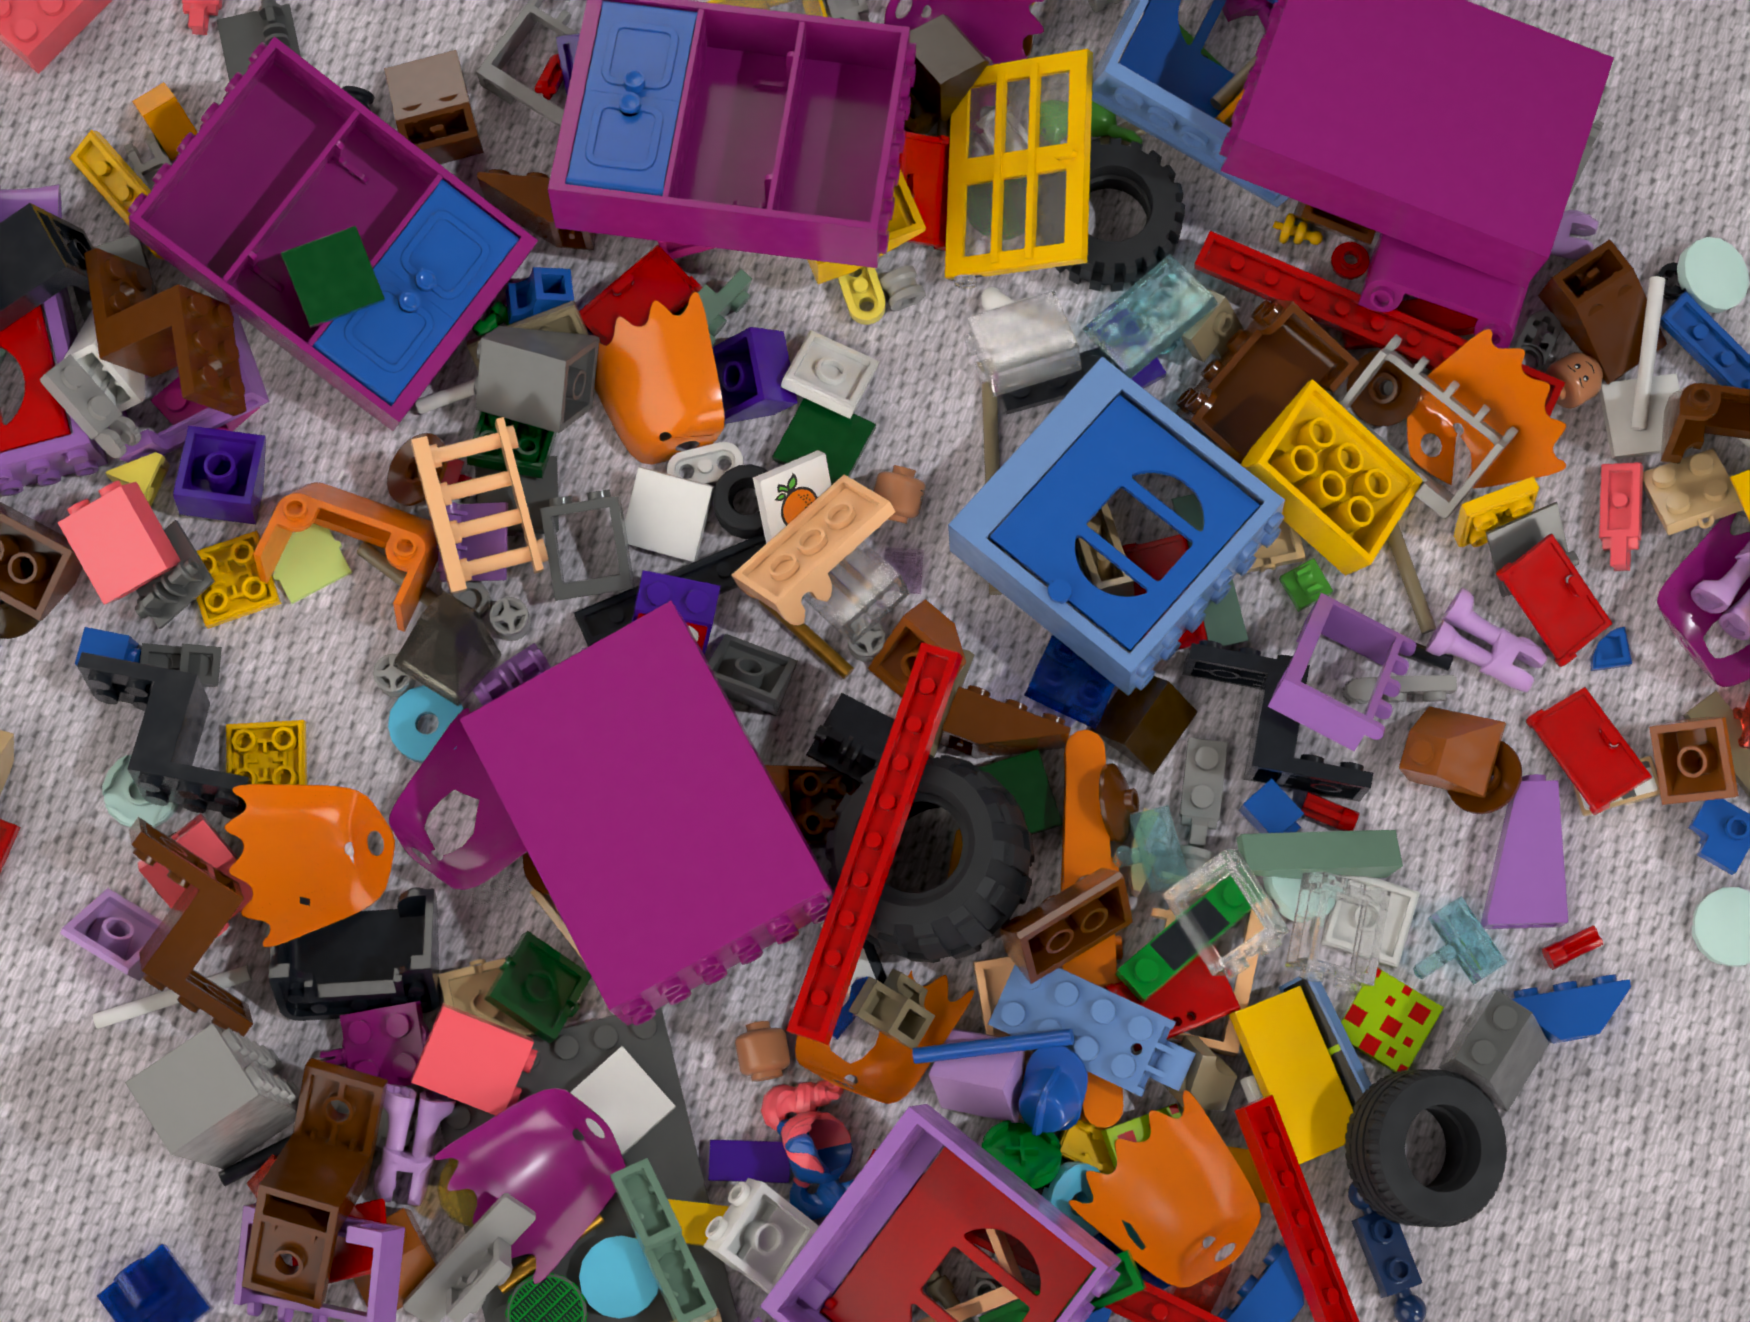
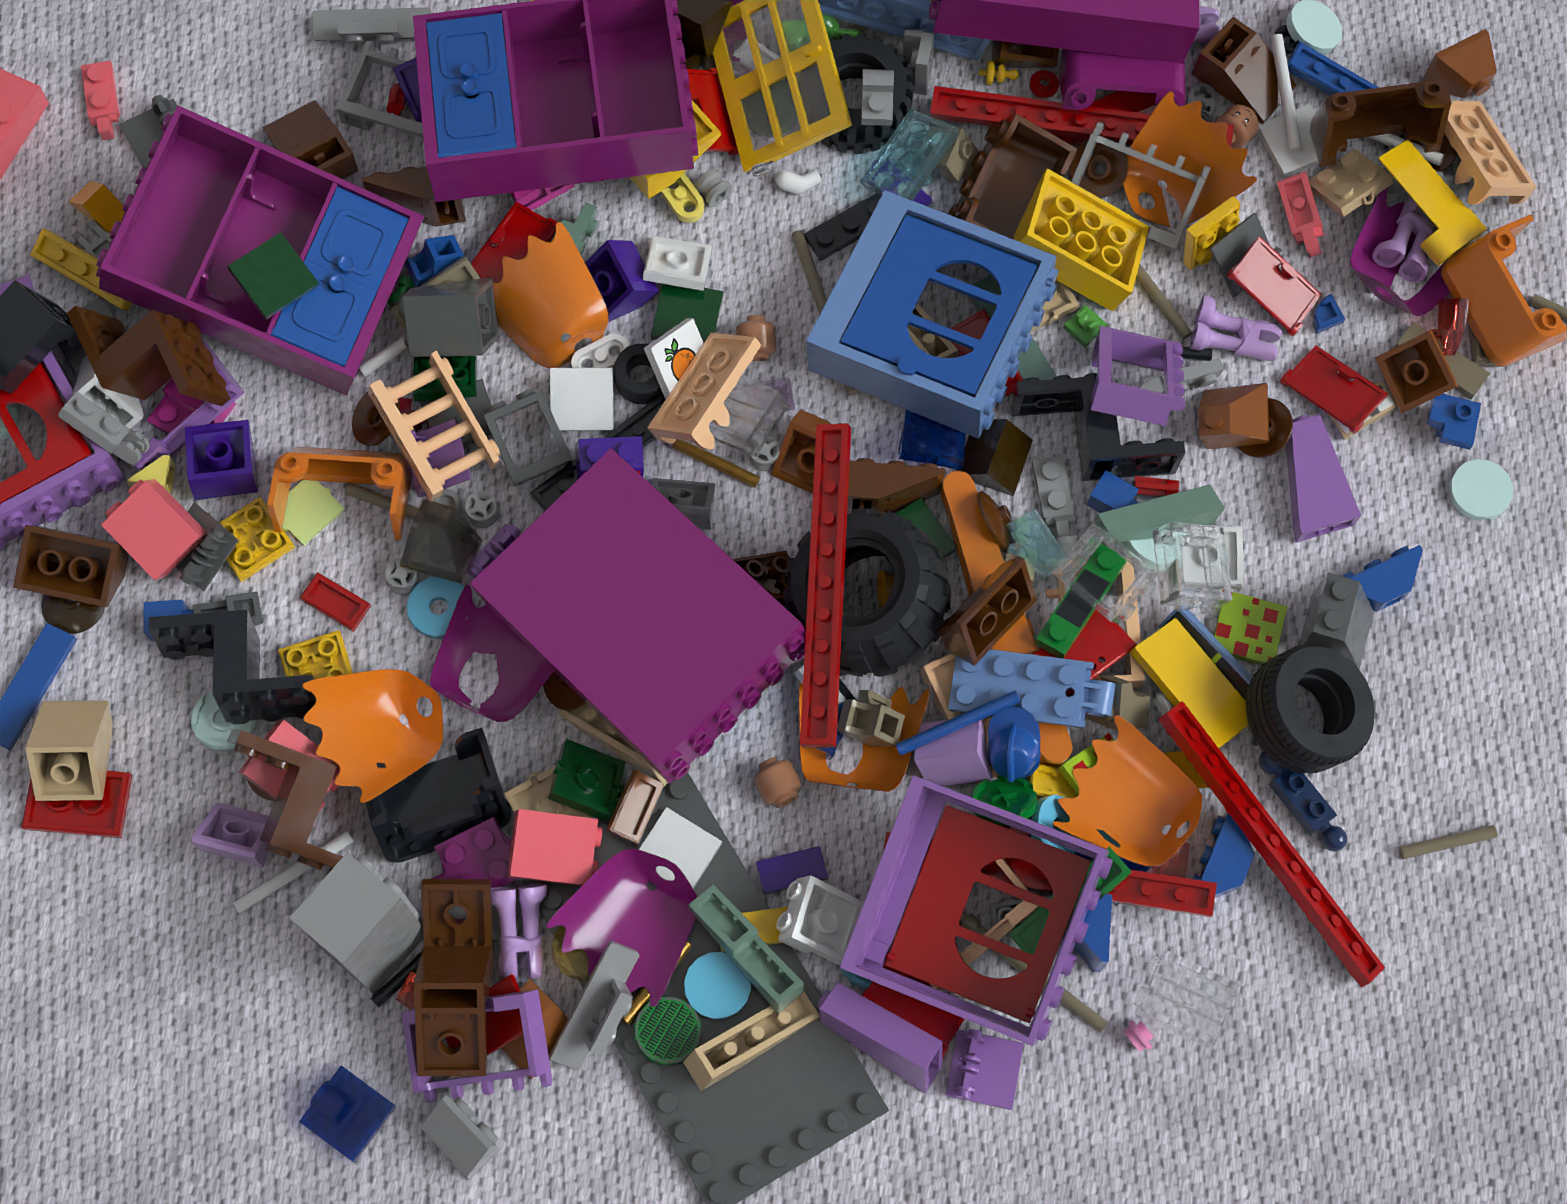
camera: 20 degrees left, 5 degrees down
(309, 684) = (335, 602): none -> red tile
(583, 1037) = (635, 807): none -> tile
(814, 1142) = (839, 839): hair -> none
(851, 738) = (777, 528): black hinge -> none
(1022, 343) = (818, 203): clear brick -> none
(1126, 236) = (877, 97): none -> light grey brick
(1205, 189) = (918, 51): none -> light grey bracket
(1464, 941) = (1286, 553): clear light blue plate -> none
(1561, 952) = (1368, 536): red piece -> none

